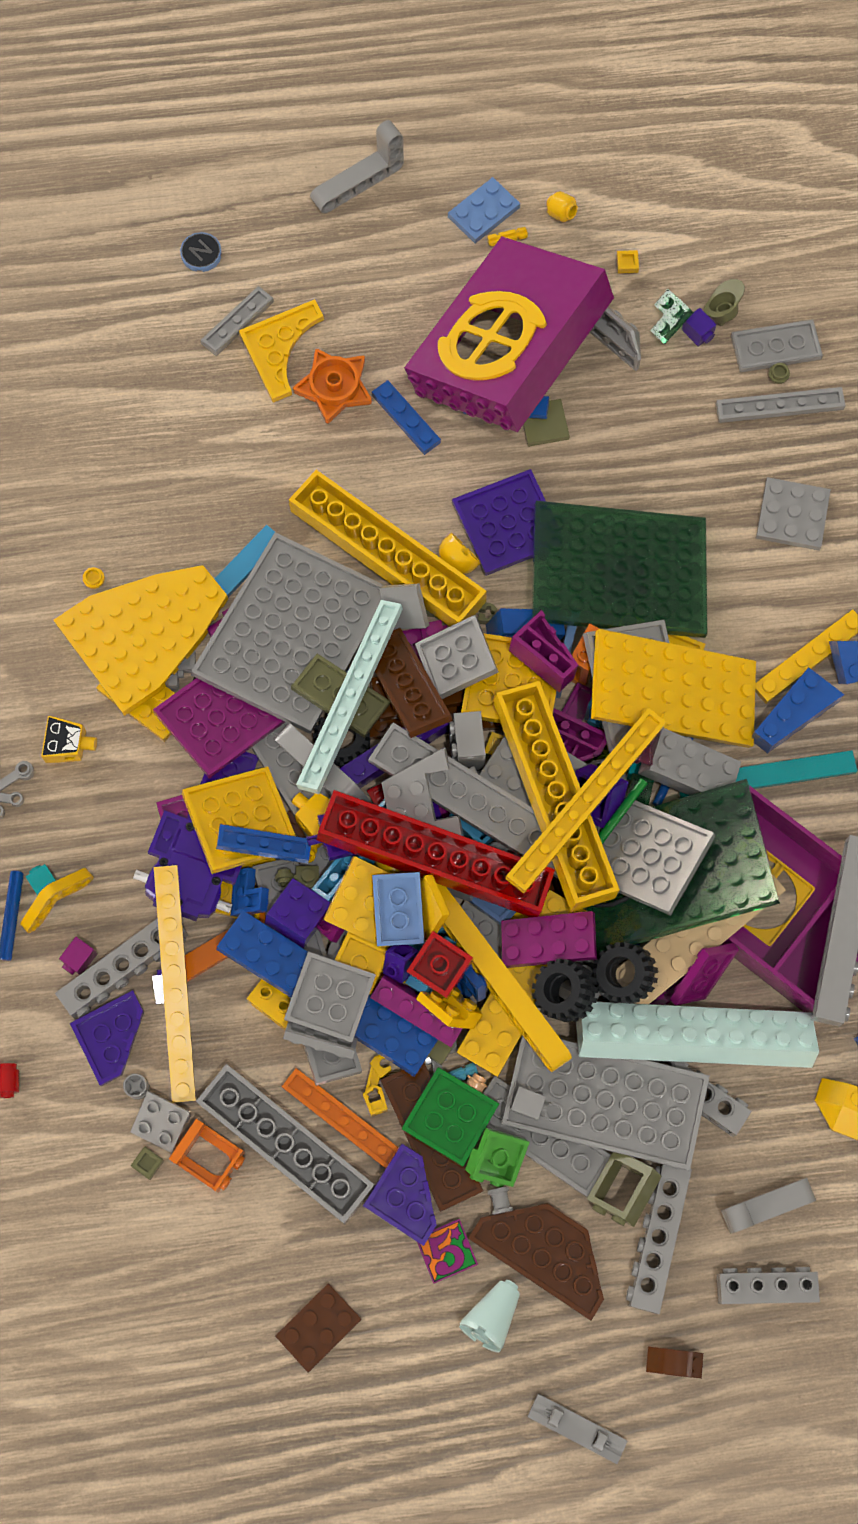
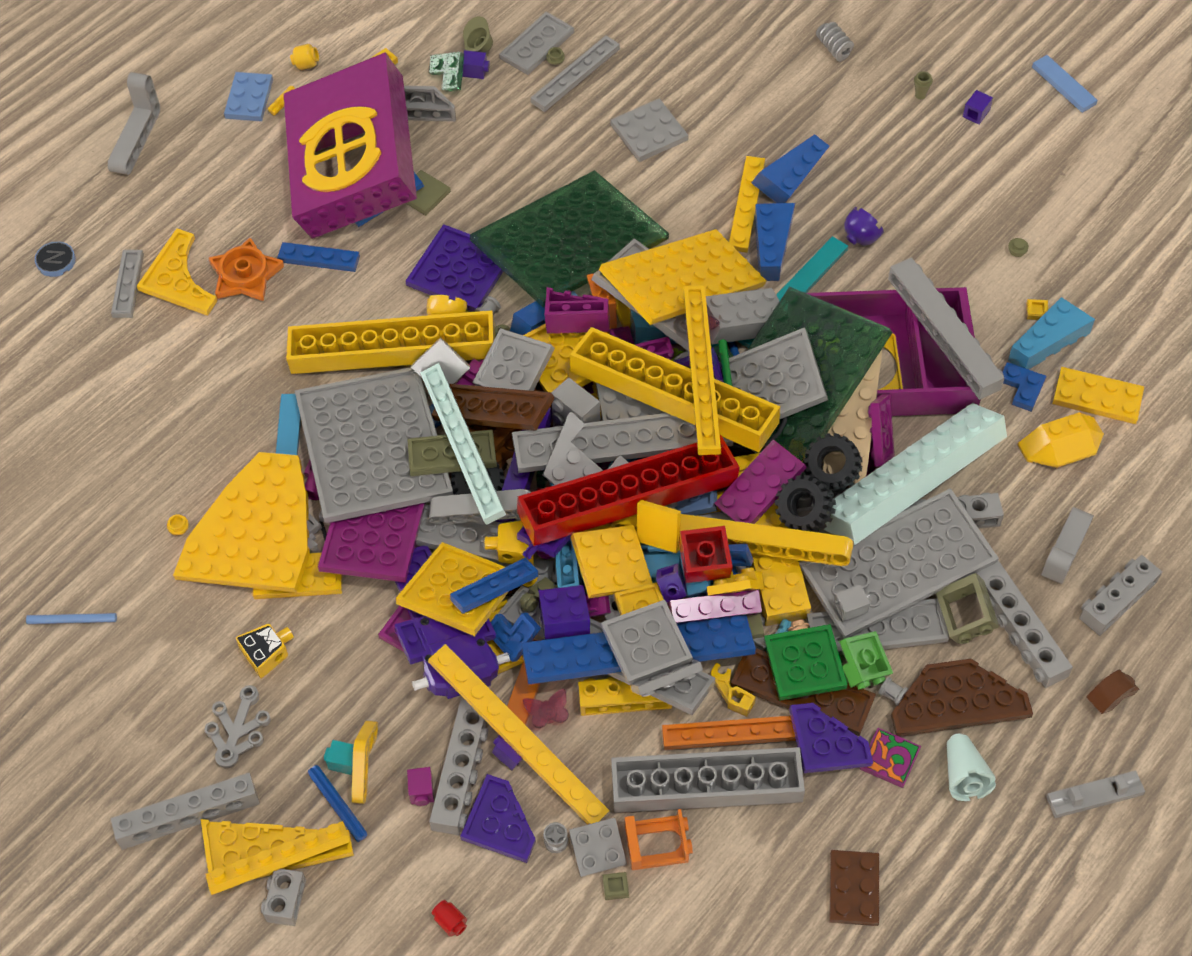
camera: 40 degrees left, 15 degrees down
(223, 977) = (547, 711): none -> clear pink animal
(398, 909) = (638, 543): medium blue plate -> none
(495, 580) = (489, 304): none -> light grey bush

